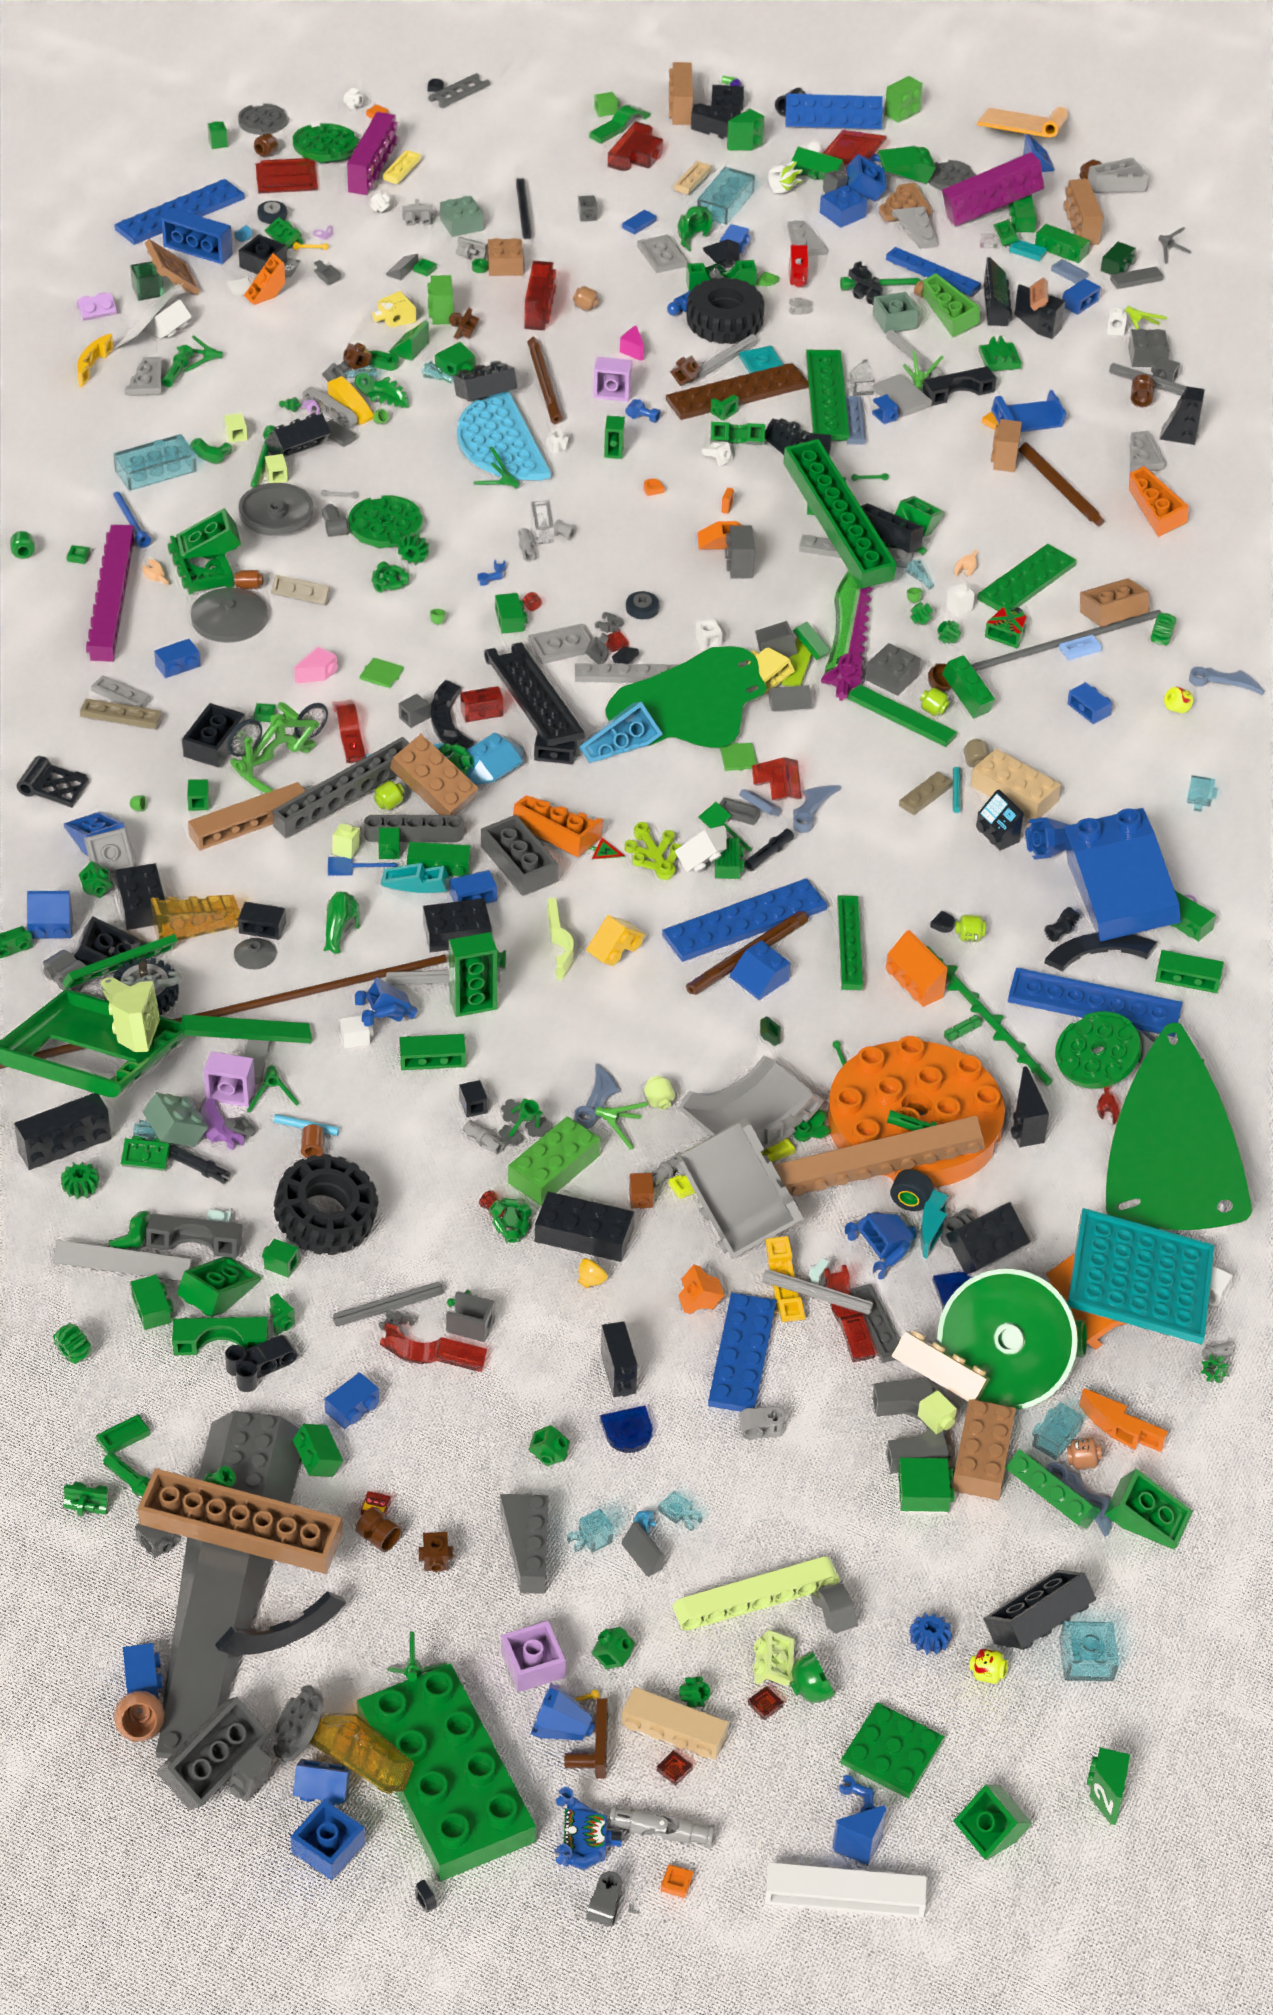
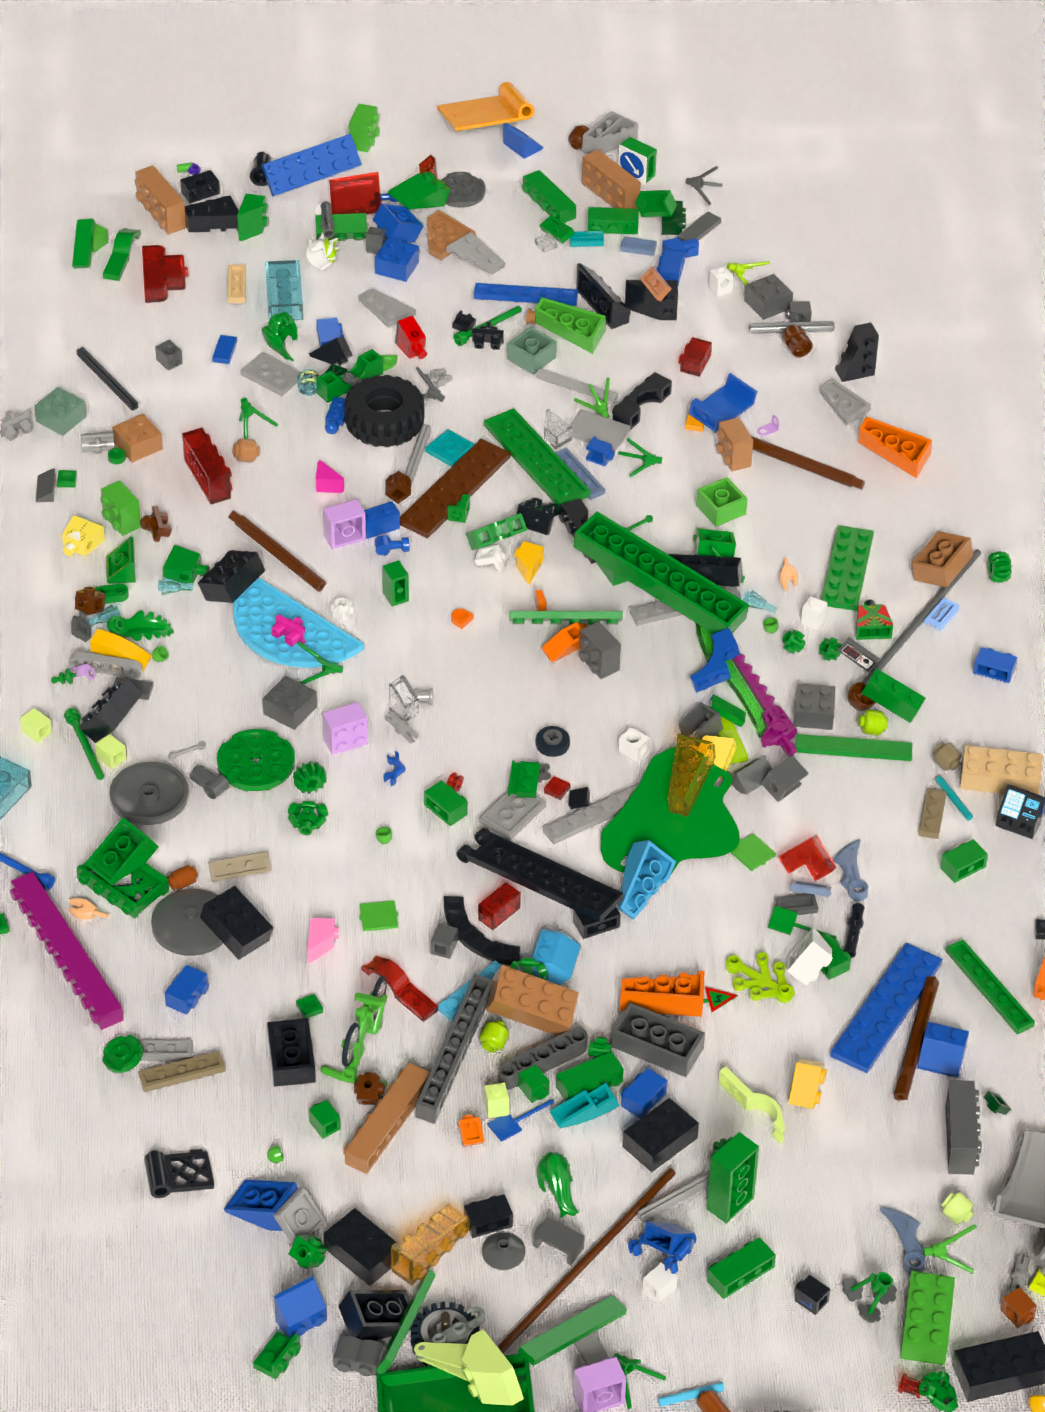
camera: 30 degrees left, 0 degrees up
(86, 681) = (122, 1054): none -> green tile
(210, 453) = (36, 763): green arm -> none
(250, 786) = (369, 1088): none -> reddish brown brick
(256, 625) = (236, 922): none -> black brick
(303, 963) = (561, 1238): none -> dark grey panel
(306, 854) = (470, 1130): none -> orange bracket
(449, 490) = (289, 702): none -> dark grey brick
(467, 838) = (599, 1047): none -> green gear
(473, 524) = (345, 728): none -> lavender brick
(483, 1137) = (848, 1326): light grey pin -> none
(493, 436) = (290, 629): none -> dark pink hips
(589, 103) = (83, 243): none -> green tile
(589, 621) = (524, 779): none -> green plate
(596, 648) = (551, 804): dark grey plate -> none
(607, 267) = (247, 411): none -> green plant
(648, 388) = (381, 519): none -> blue brick
(679, 267) = (307, 382): none -> clear light blue head
(716, 1032) = (962, 1127): none -> dark grey brick
(723, 669) = (689, 771): none -> clear yellow wedge
(729, 514) = (557, 617): none -> plate
(748, 466) = (529, 560): none -> yellow slope
(783, 312) = (432, 392): none -> dark grey plant
(799, 153) = (327, 223): none -> dark grey pin
(812, 710) = (784, 778): none -> dark grey piece
(831, 606) = (716, 669): none -> blue arch
(916, 838) = (963, 860): none -> green brick
(925, 431) = (648, 459): none -> green plant
(937, 148) = (428, 165): none -> clear red plate
(955, 484) = (721, 501): none -> bright green brick
(968, 644) = (858, 654): none -> tile
(993, 189) = (523, 191): magenta brick -> none
(1001, 350) = (650, 349): green piece -> none
(1039, 370) = (695, 356): none -> clear red brick
(1057, 449) = (770, 428): none -> lavender piece
(1105, 239) = (656, 203): none -> green panel
(1109, 286) = (690, 247): none -> blue brick
(1123, 203) = (638, 159): none -> piece

